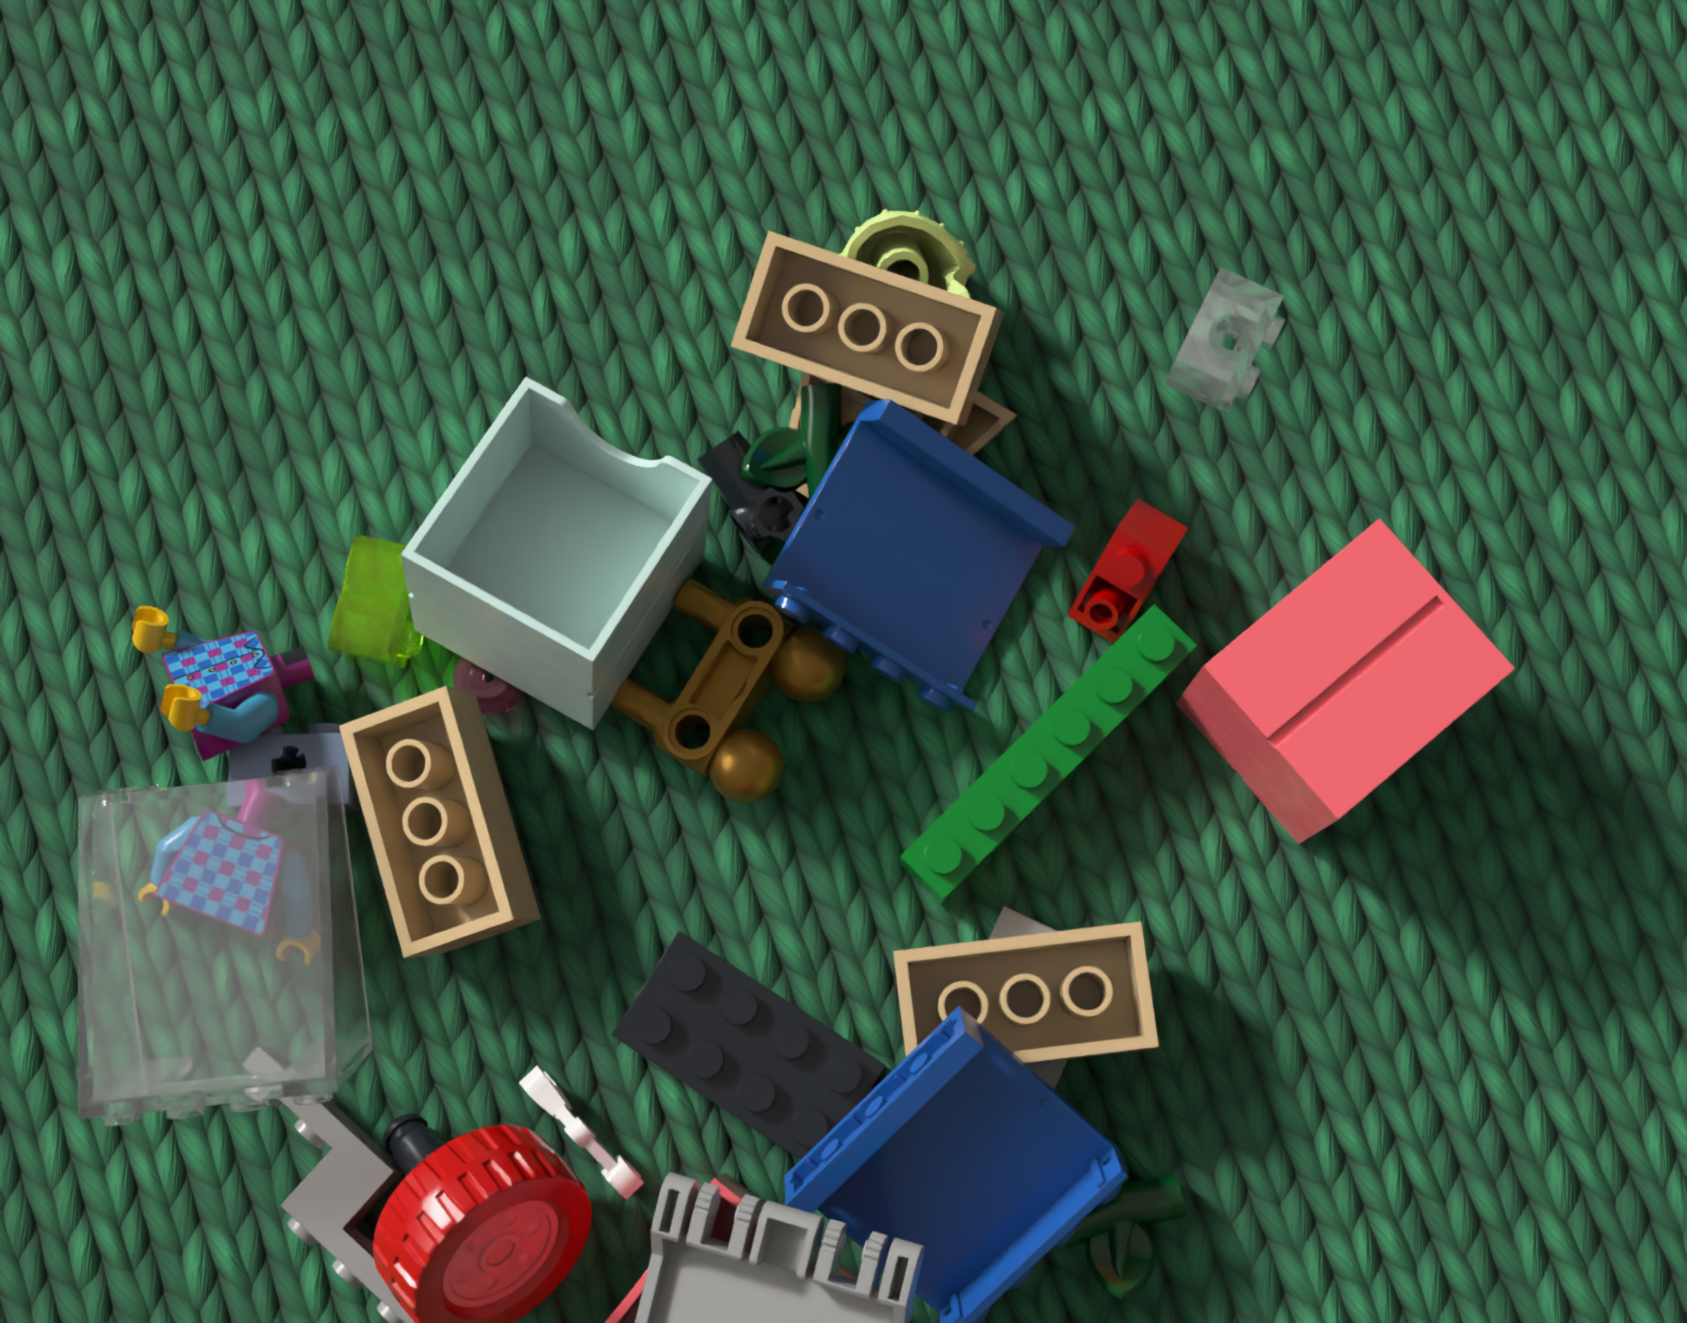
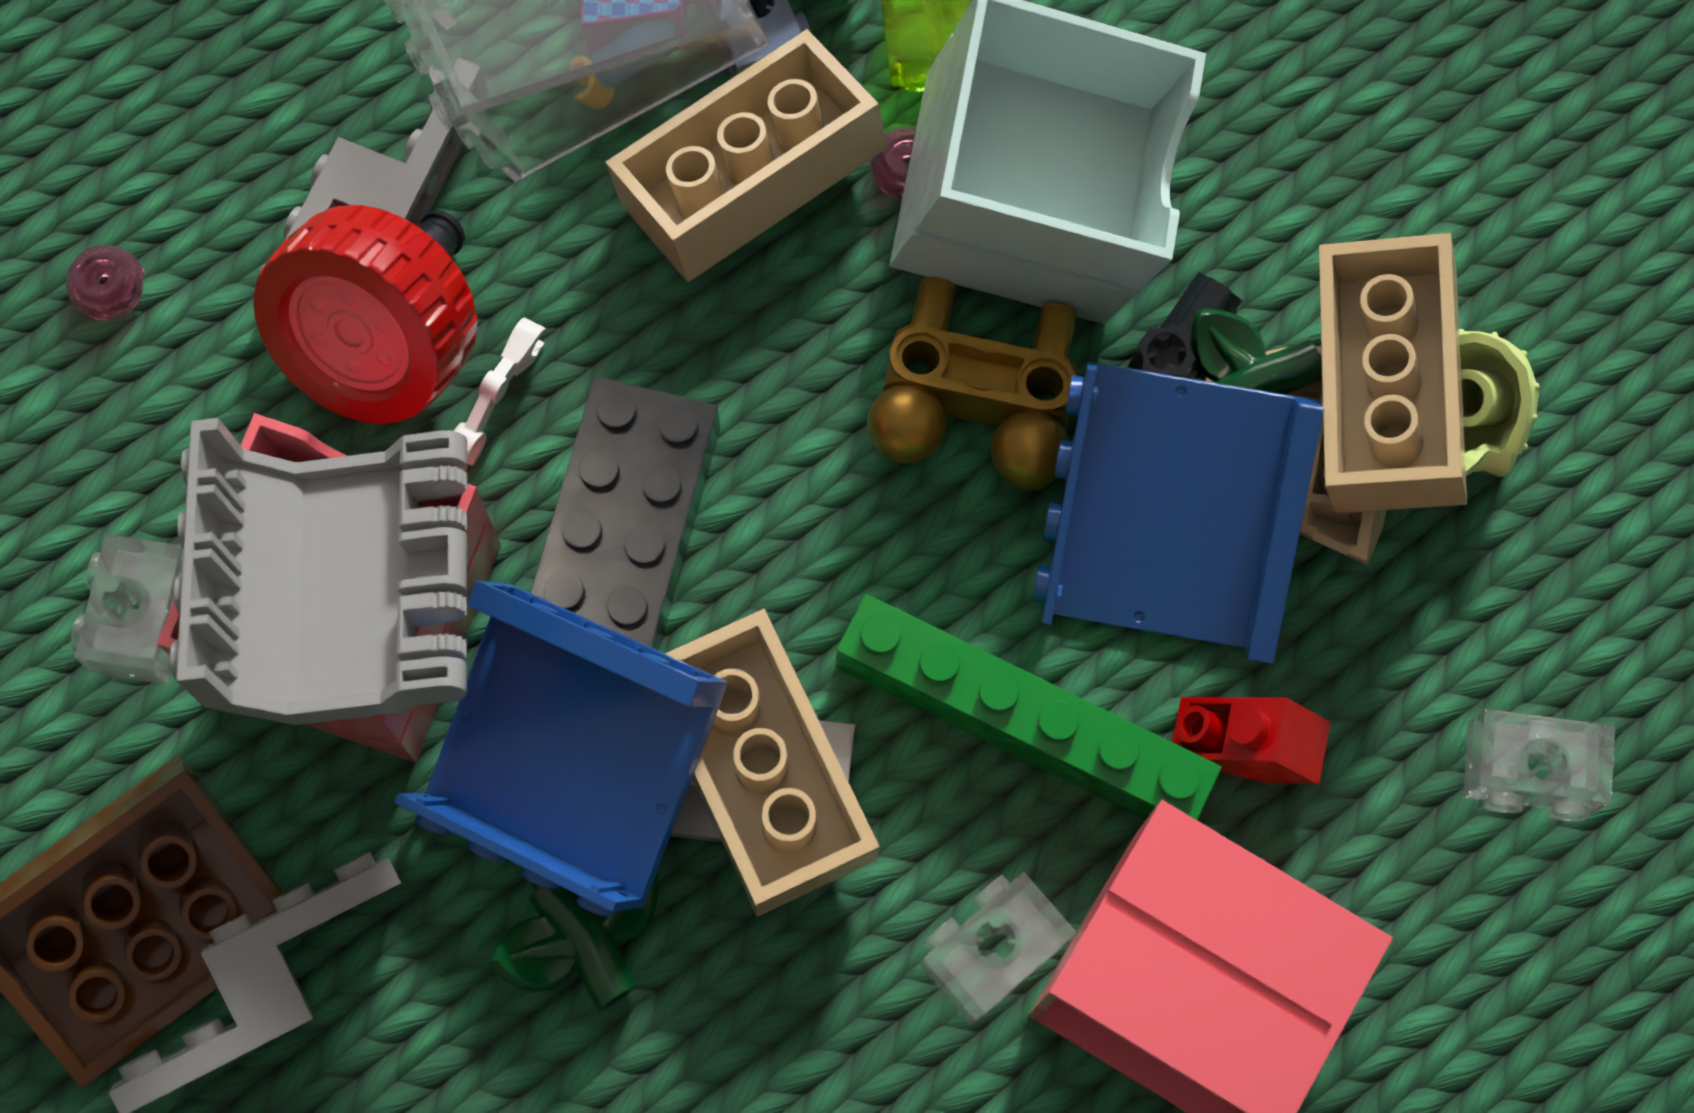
camera: 65 degrees right, 5 degrees down
(1266, 871) = (1033, 934): none -> clear brick

